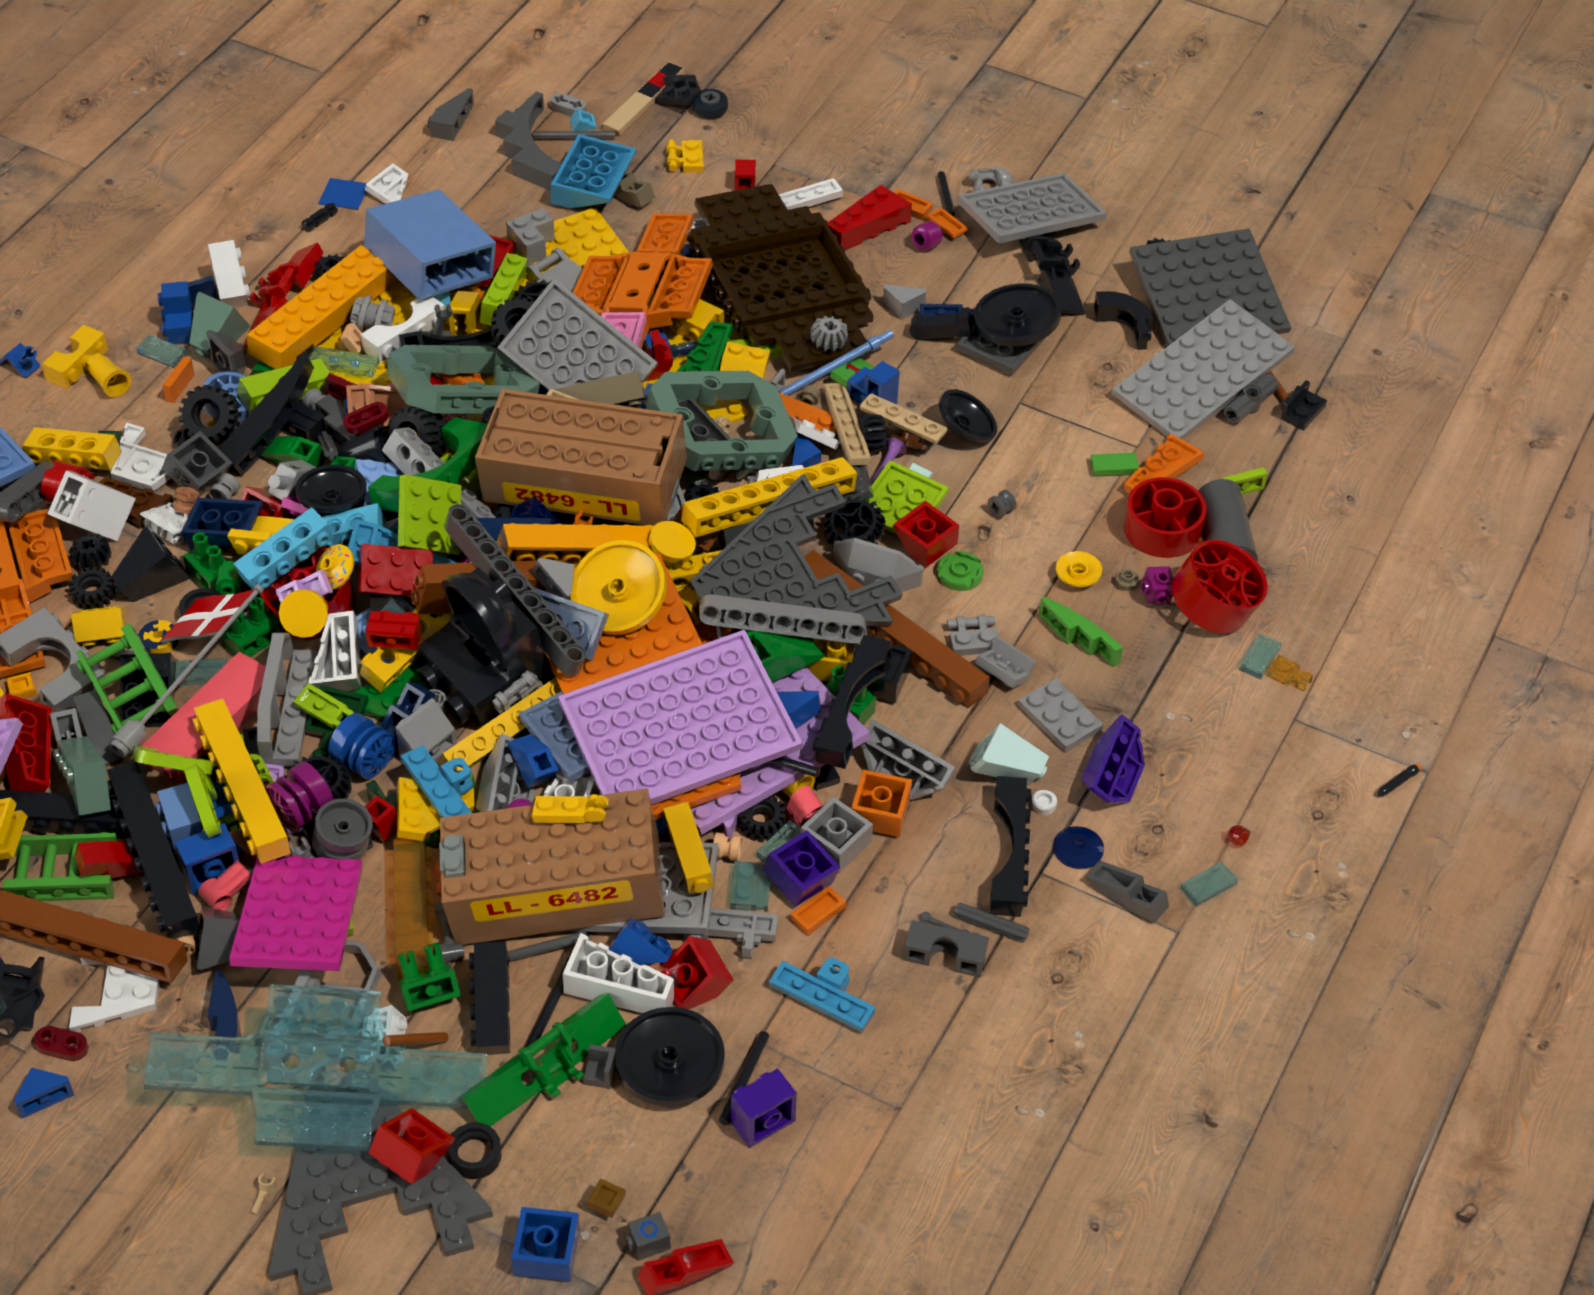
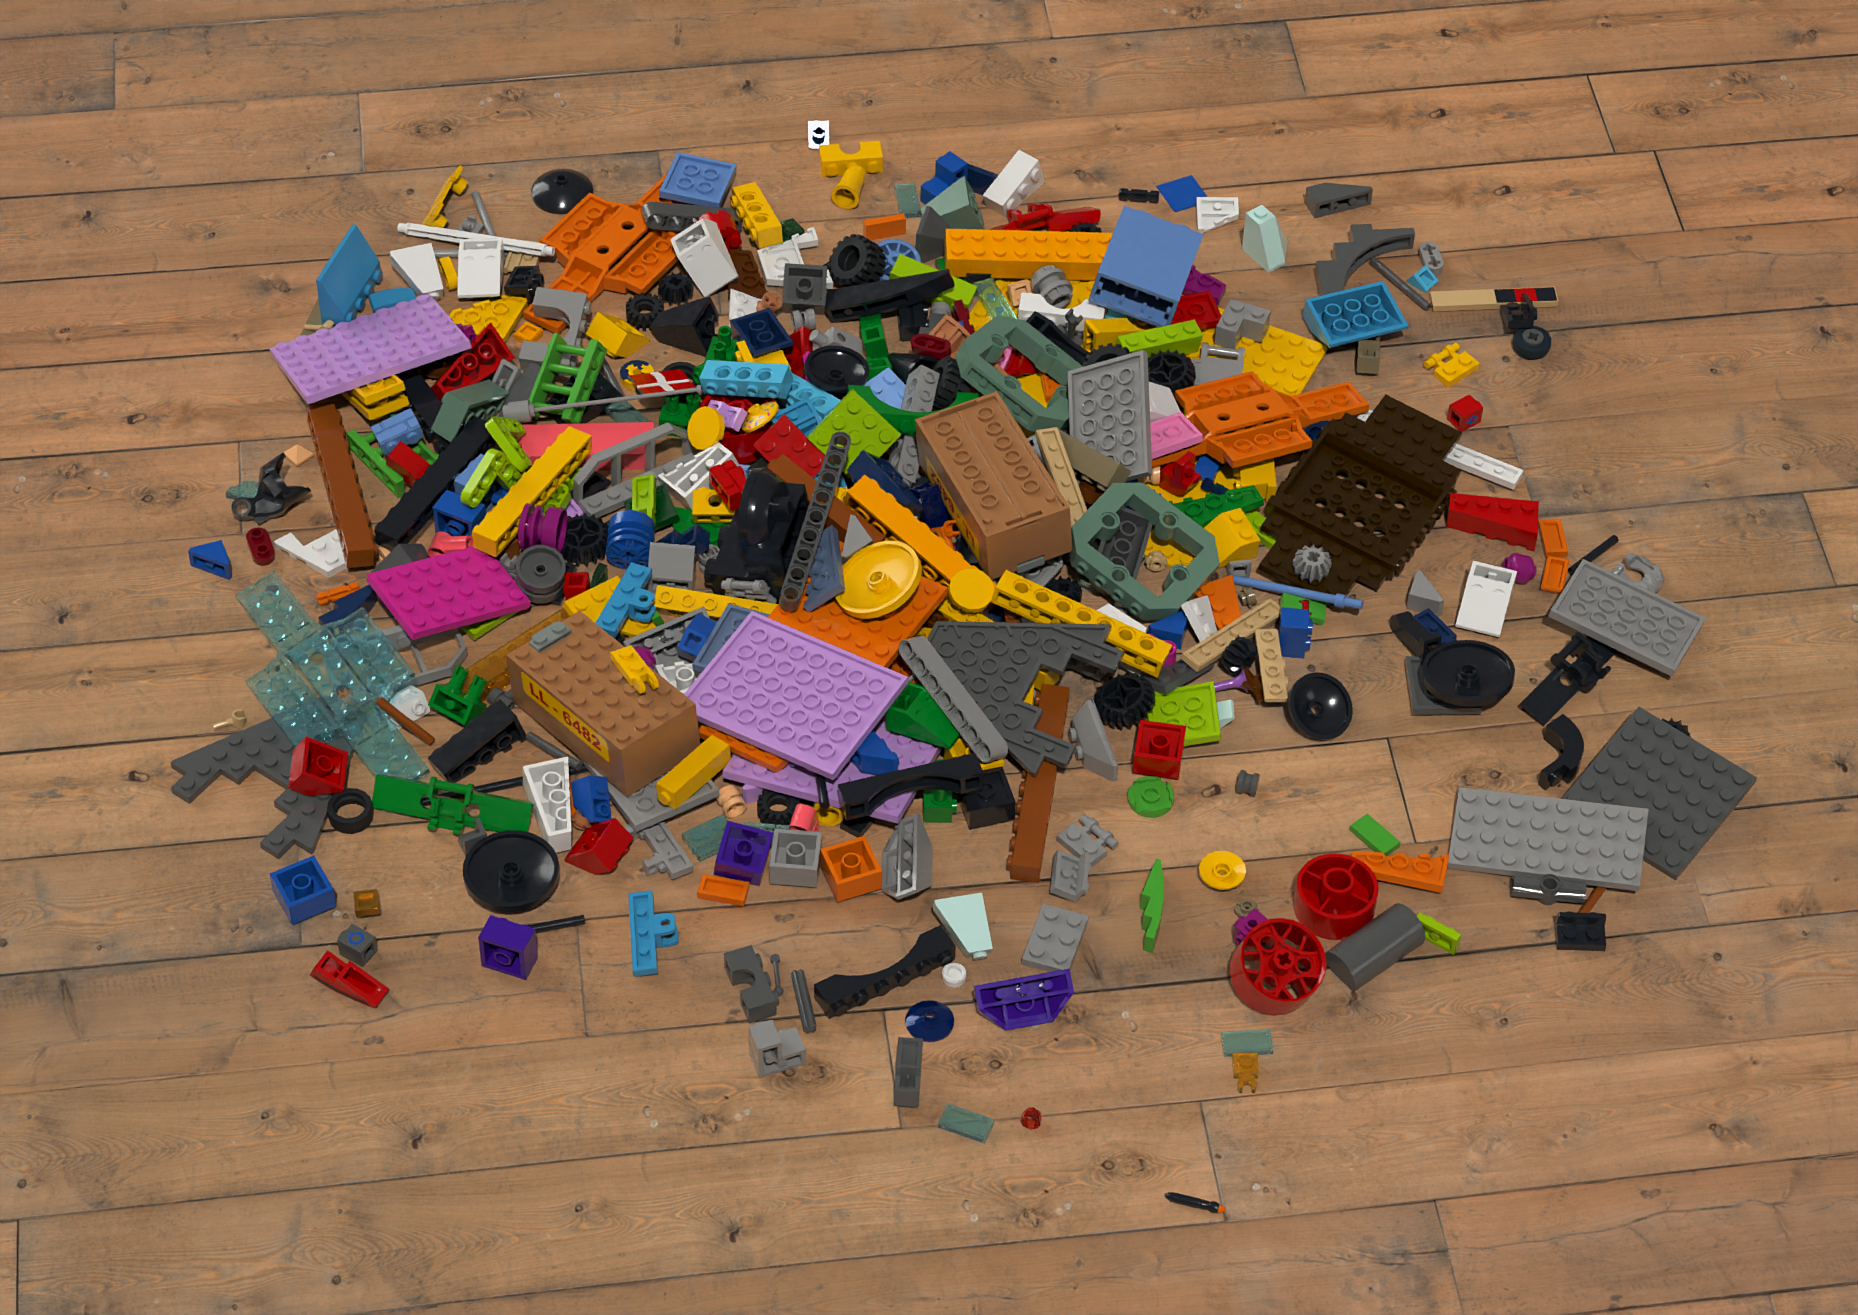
camera: 55 degrees right, 0 degrees up
(52, 844) = (398, 428): none -> medium blue brick
(189, 1010) = (336, 593): none -> orange axle
(327, 445) = (894, 347): dark grey axle -> none
(456, 173) = (1264, 239): none -> light aqua slope
(941, 268) = (1486, 598): none -> white slope
(1036, 971) = (775, 1050): none -> light grey brick

